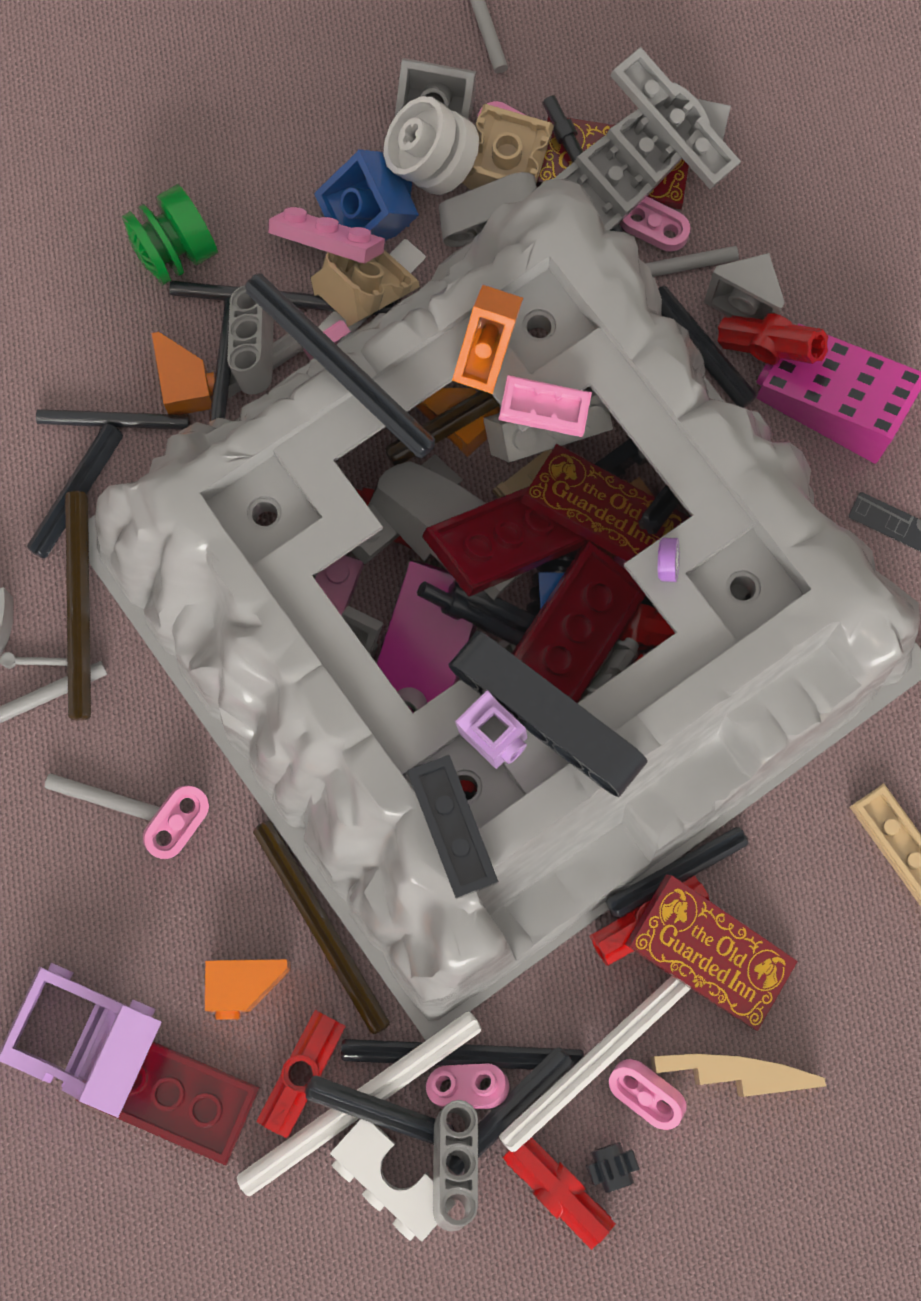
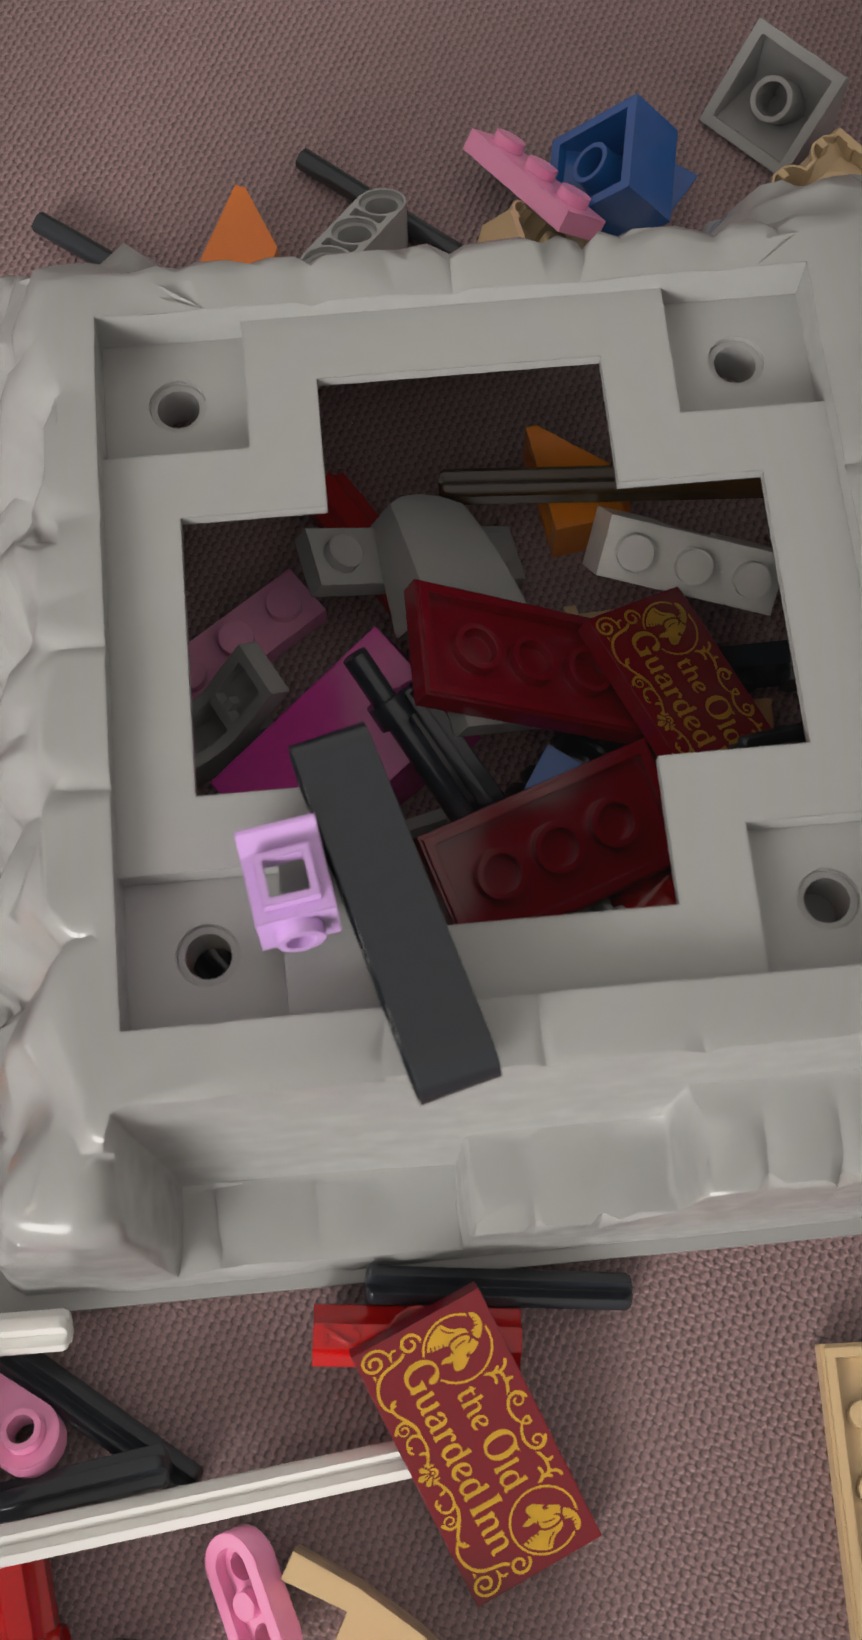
camera: 30 degrees right, 5 degrees down
(169, 234) = (332, 83): green wheel -> none
(340, 365) = (405, 253): black axle -> none
(431, 145) = (736, 137): white wheel -> none
(452, 826) = (127, 998): black plate -> none
(487, 338) = (641, 315): orange slope -> none
(545, 406) = (672, 459): bright pink plate -> none
(668, 559) = (729, 781): medium lavender tile -> none

